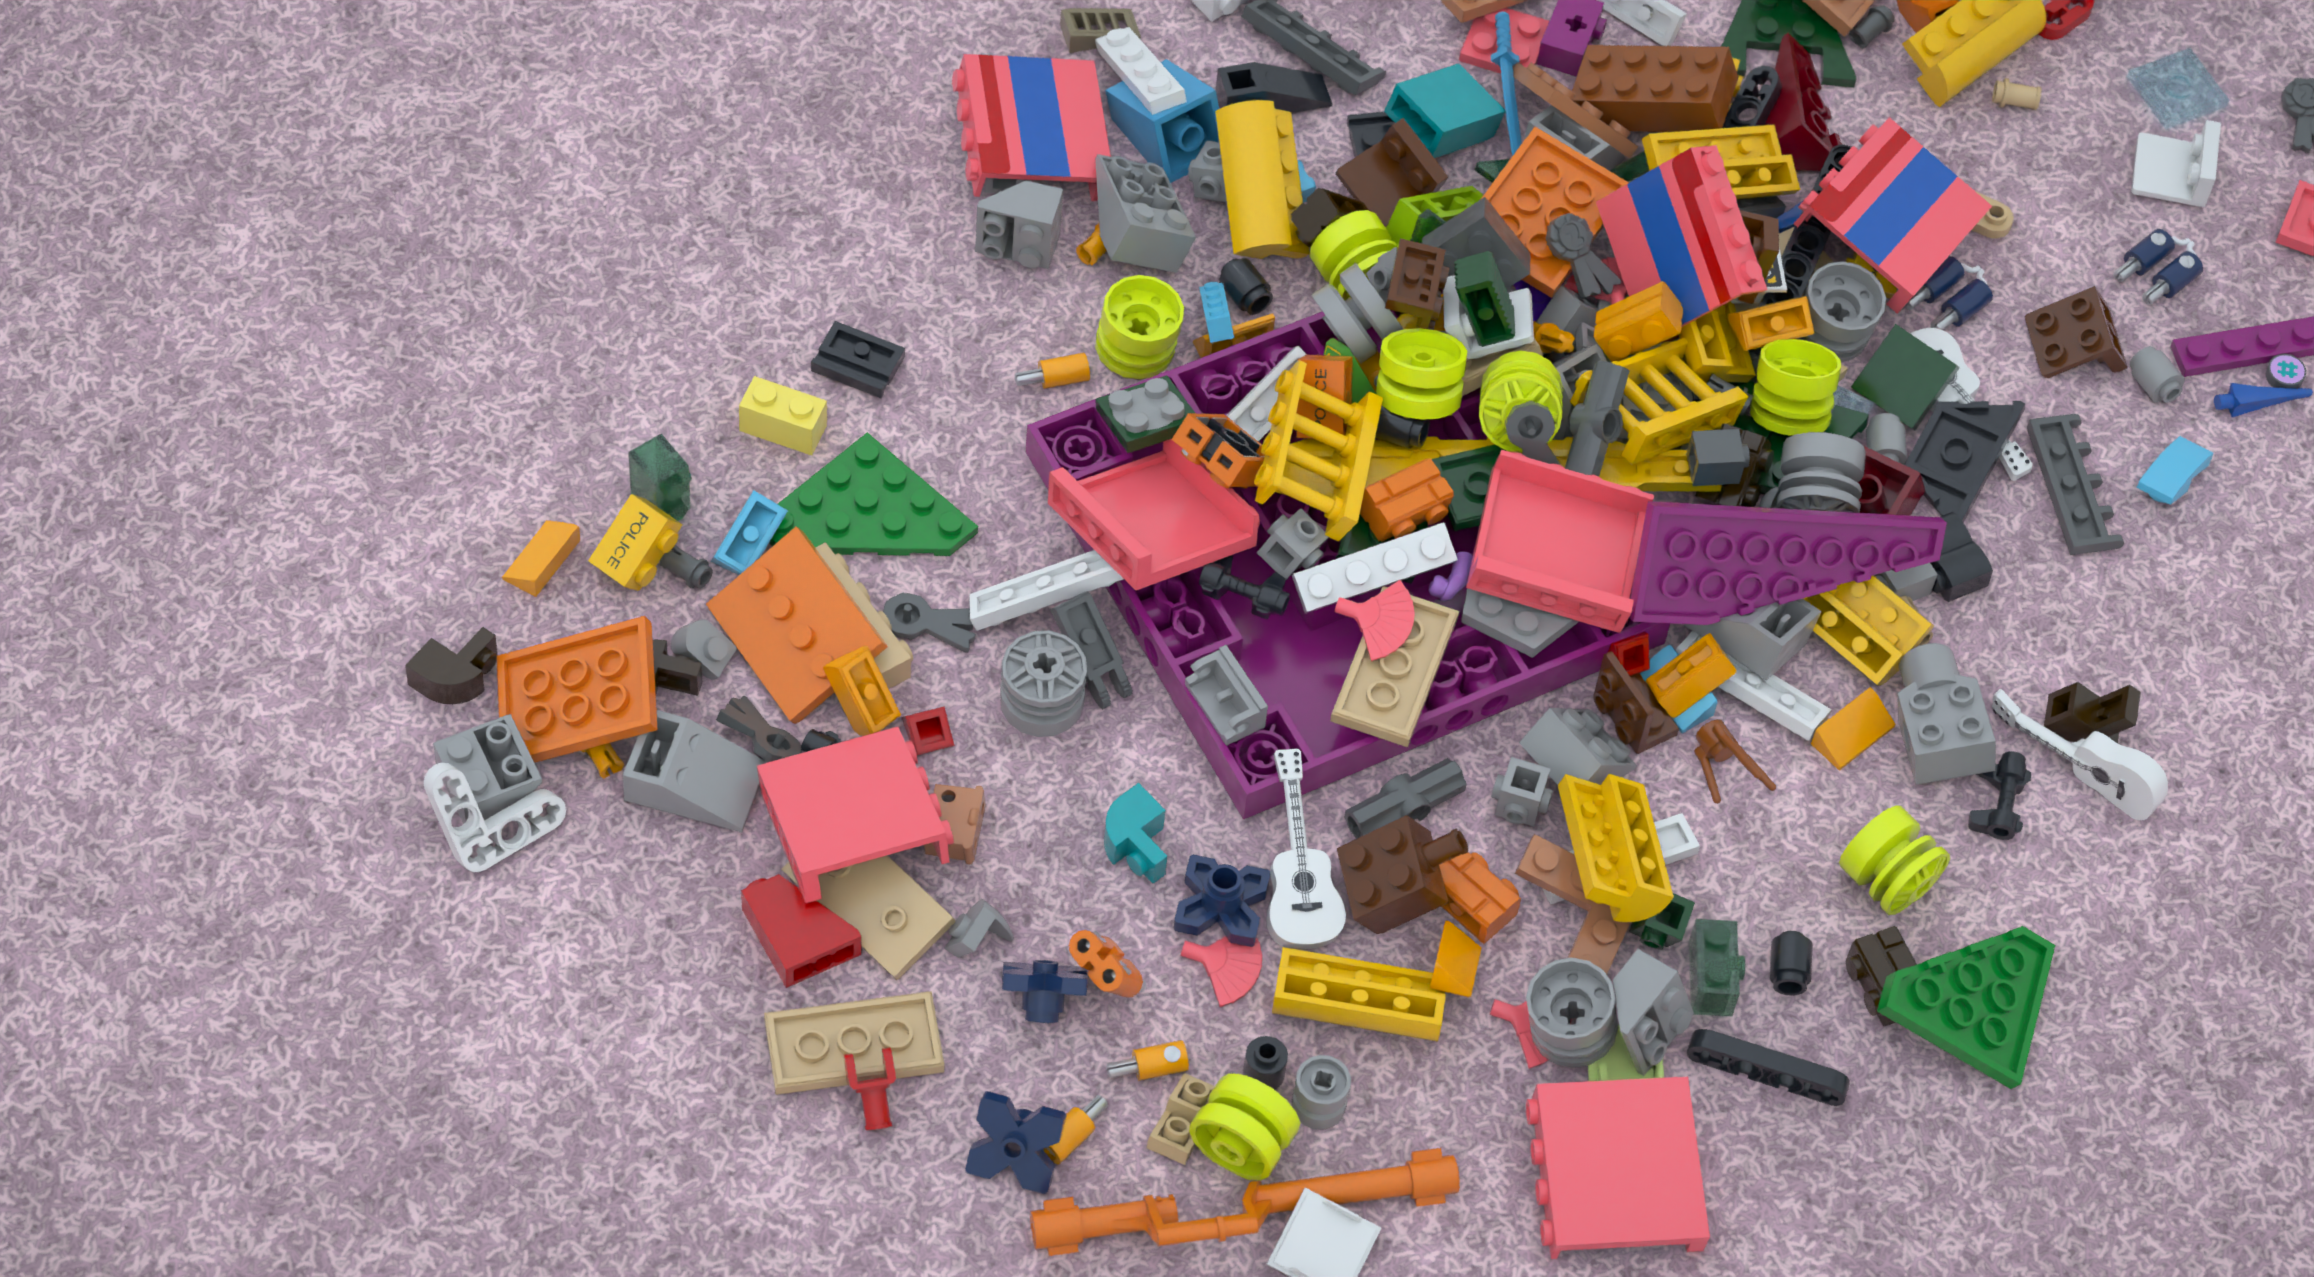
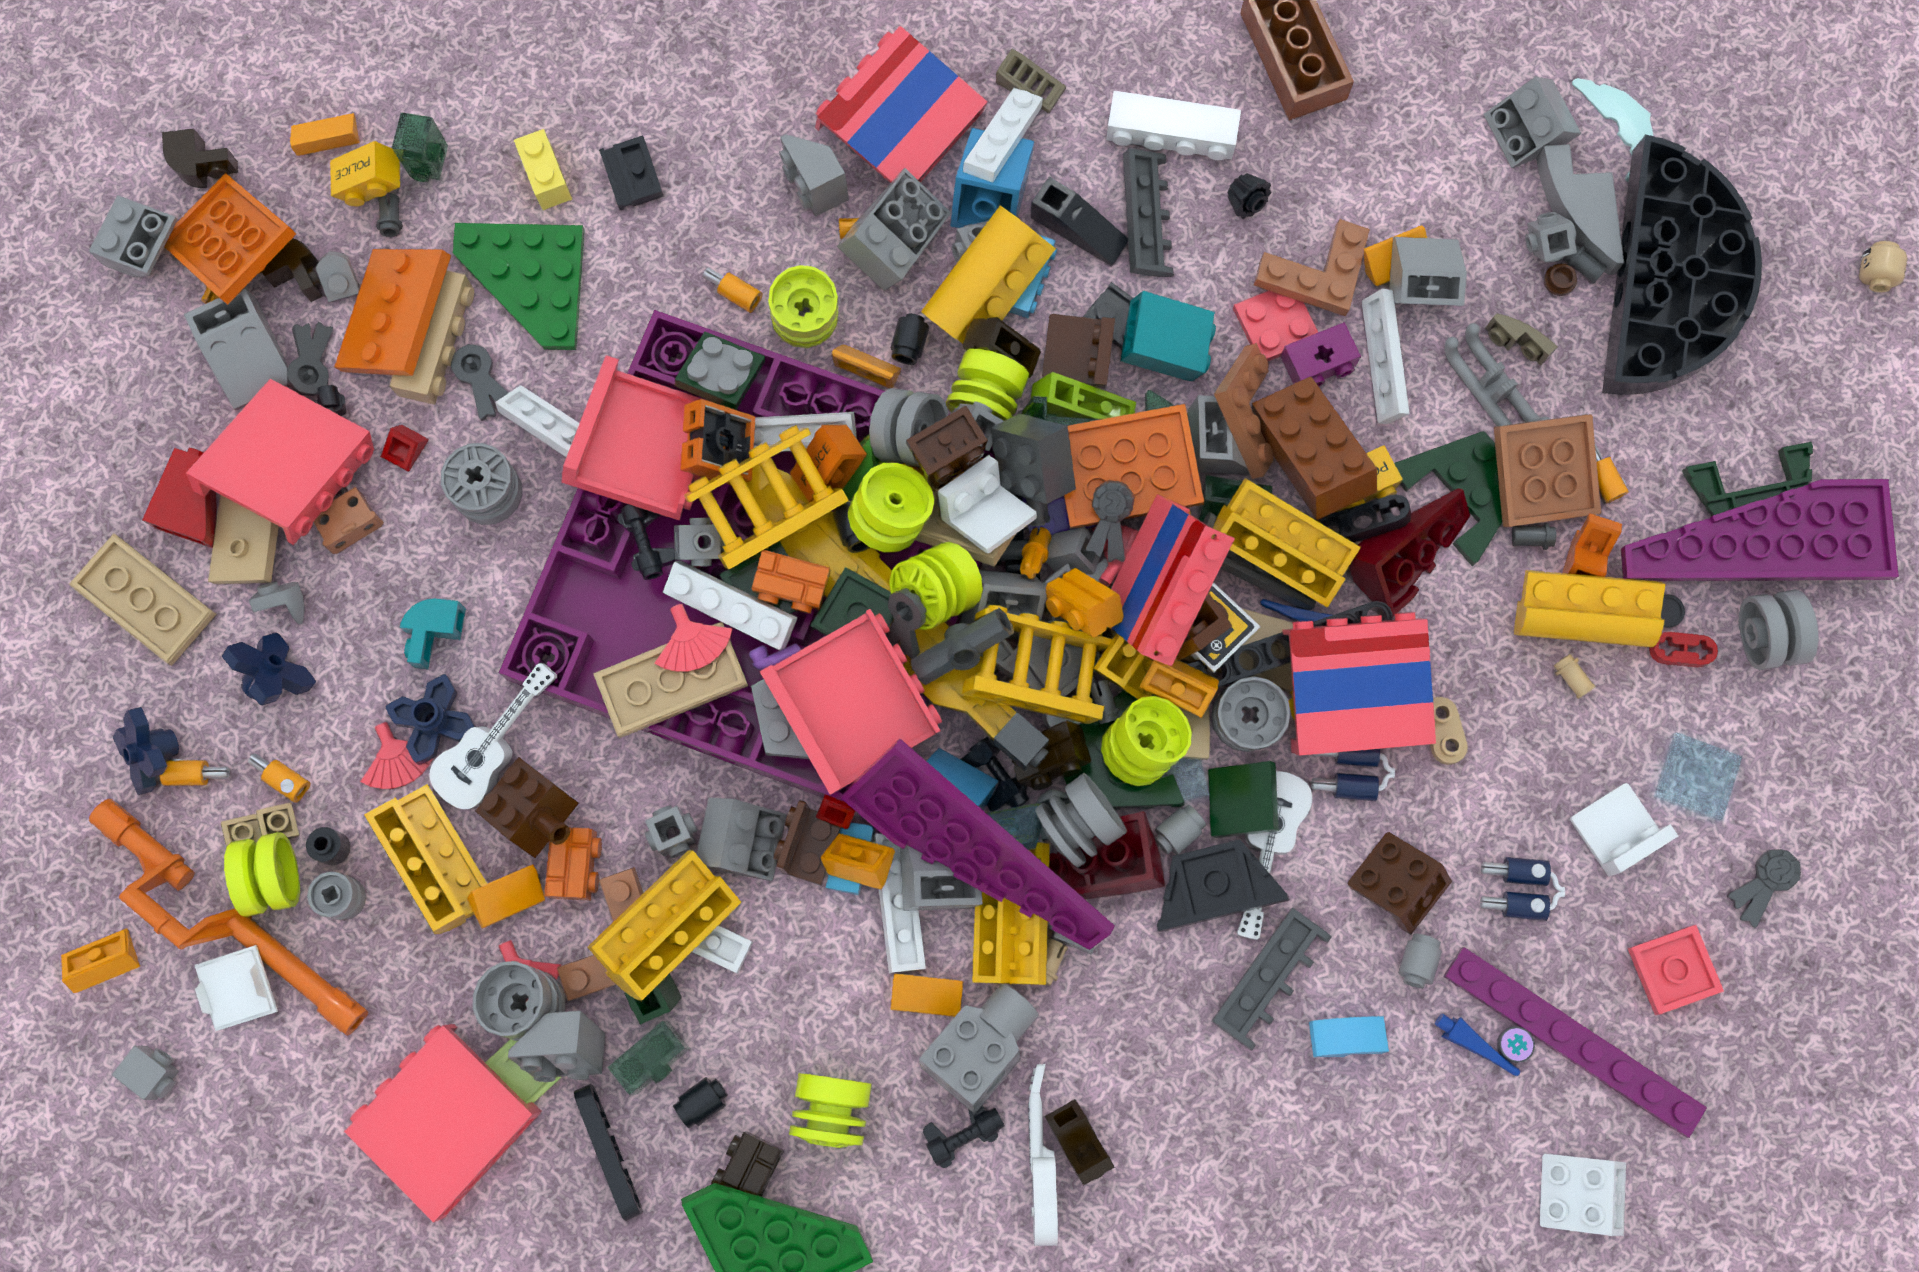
camera: 55 degrees right, 20 degrees up
(477, 829) = (88, 281): white beam -> none
(749, 534) = (439, 227): medium azure slope -> none
(862, 691) = (377, 390): light orange slope -> none
(873, 1091) = (109, 636): red piece -> none
(1083, 624) = (532, 487): dark grey hinge -> none
(1106, 965) = (305, 694): orange piece -> none
(1216, 312) = (859, 341): medium azure piece -> none
(1227, 696) = (552, 600): light grey hinge -> none
(1407, 796) = (605, 764): dark grey piece -> none
(1484, 298) = (981, 495): dark green brick -> none
(1505, 60) = (1247, 337): dark azure sword -> none
(1719, 744) = (830, 919): dark orange plant -> none
(1962, 562) = (1125, 947): black brick -> none

